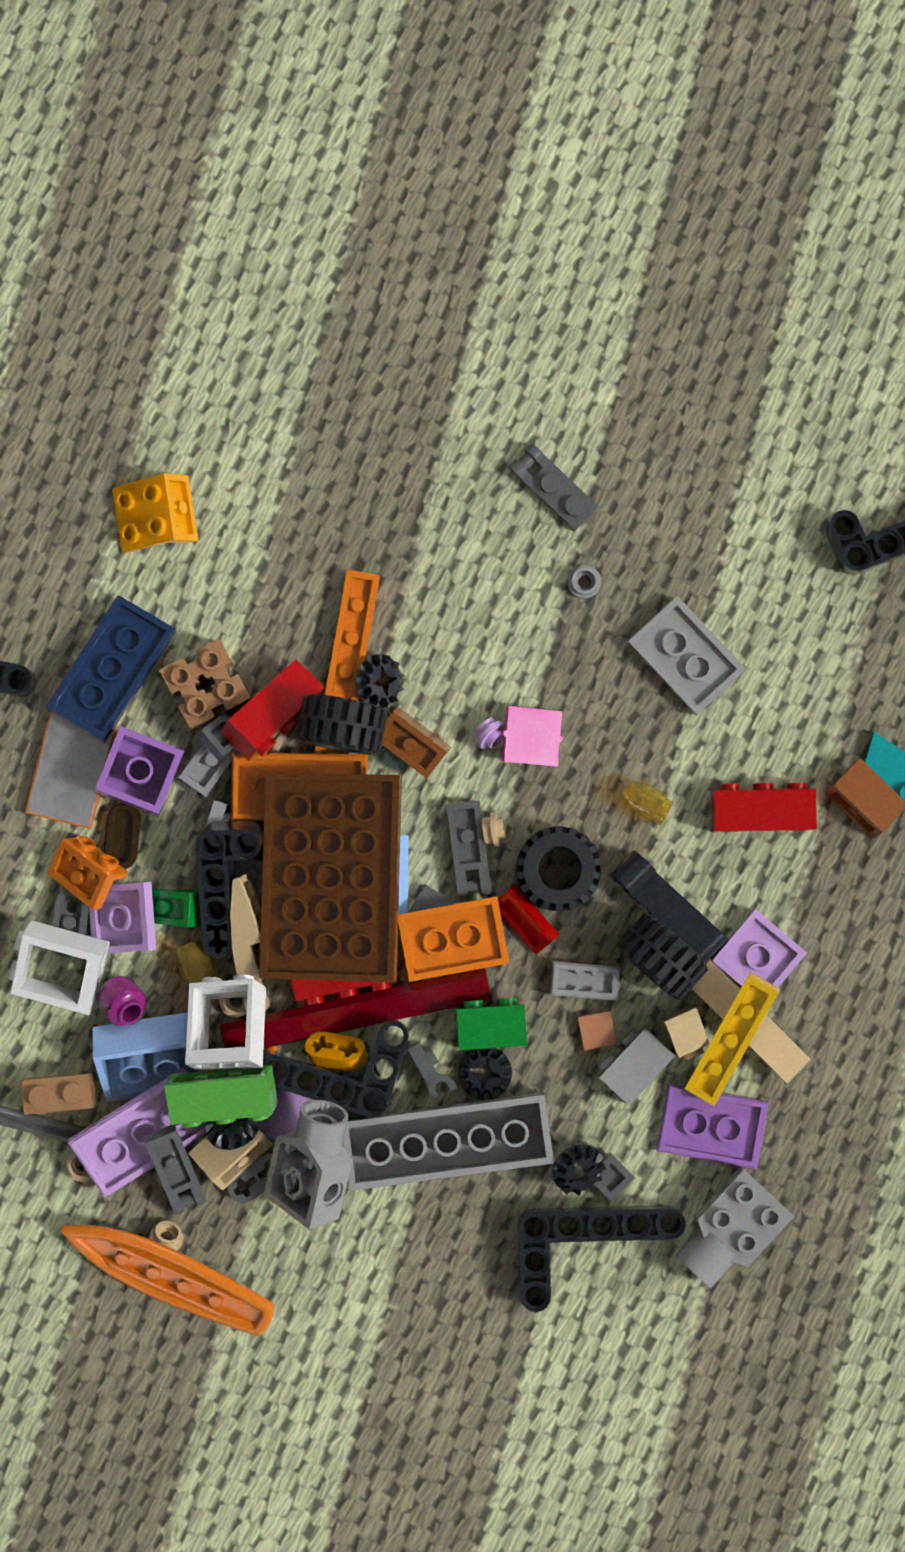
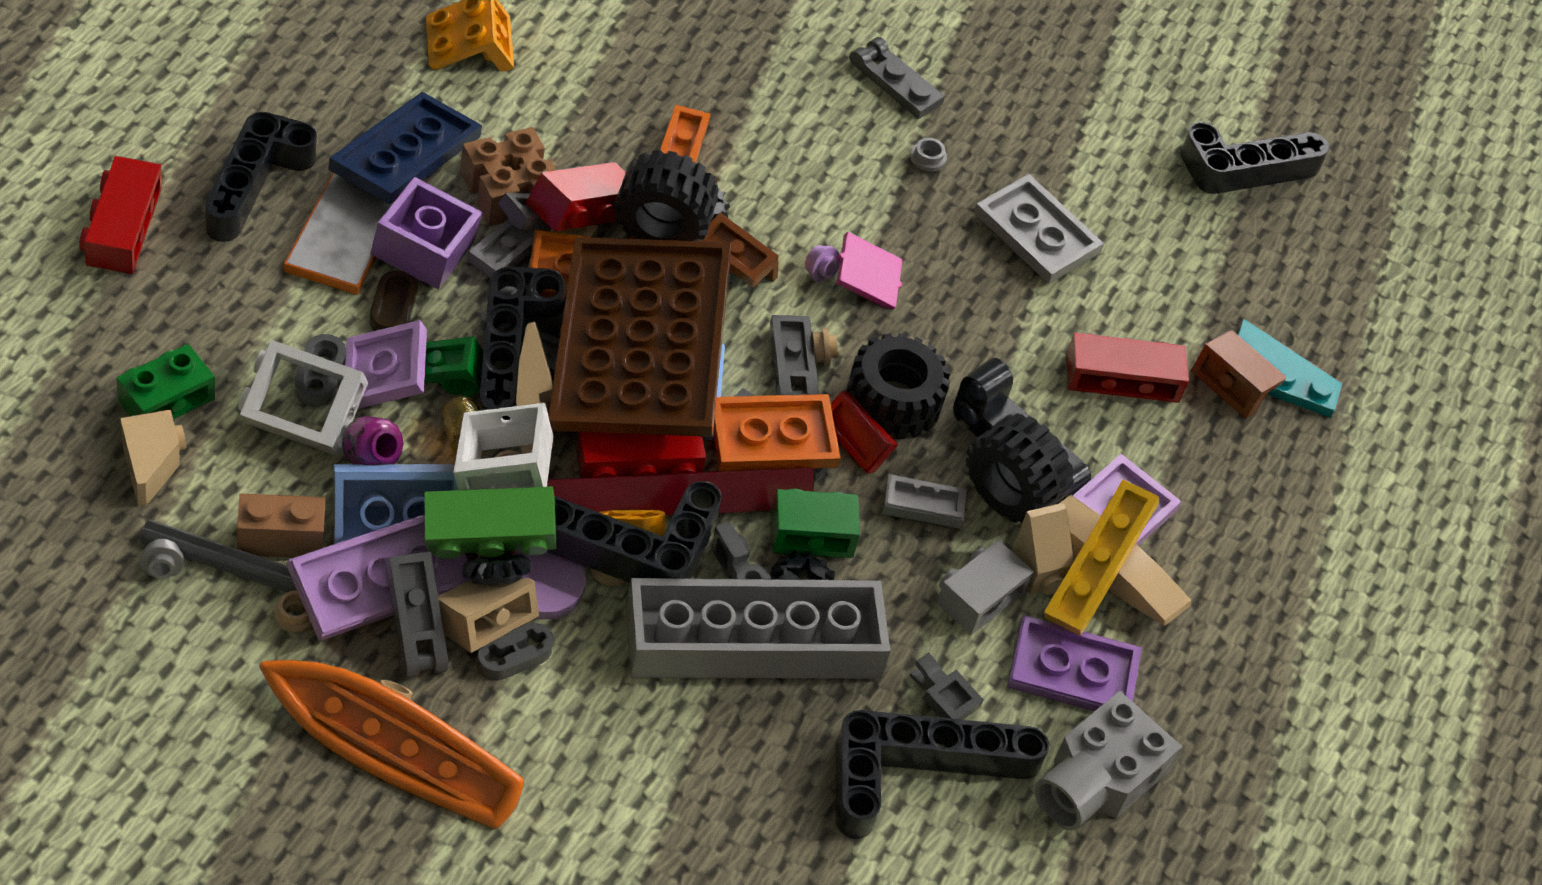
camera: 10 degrees left, 35 degrees down
(85, 870) = (348, 313): orange bracket -> none
(311, 1165) = (592, 612): light grey brick -> none
(564, 1170) = (903, 659): black gear -> none
(597, 1030) = (937, 553): nougat tile -> none
(646, 802) = (996, 341): clear yellow brick -> none

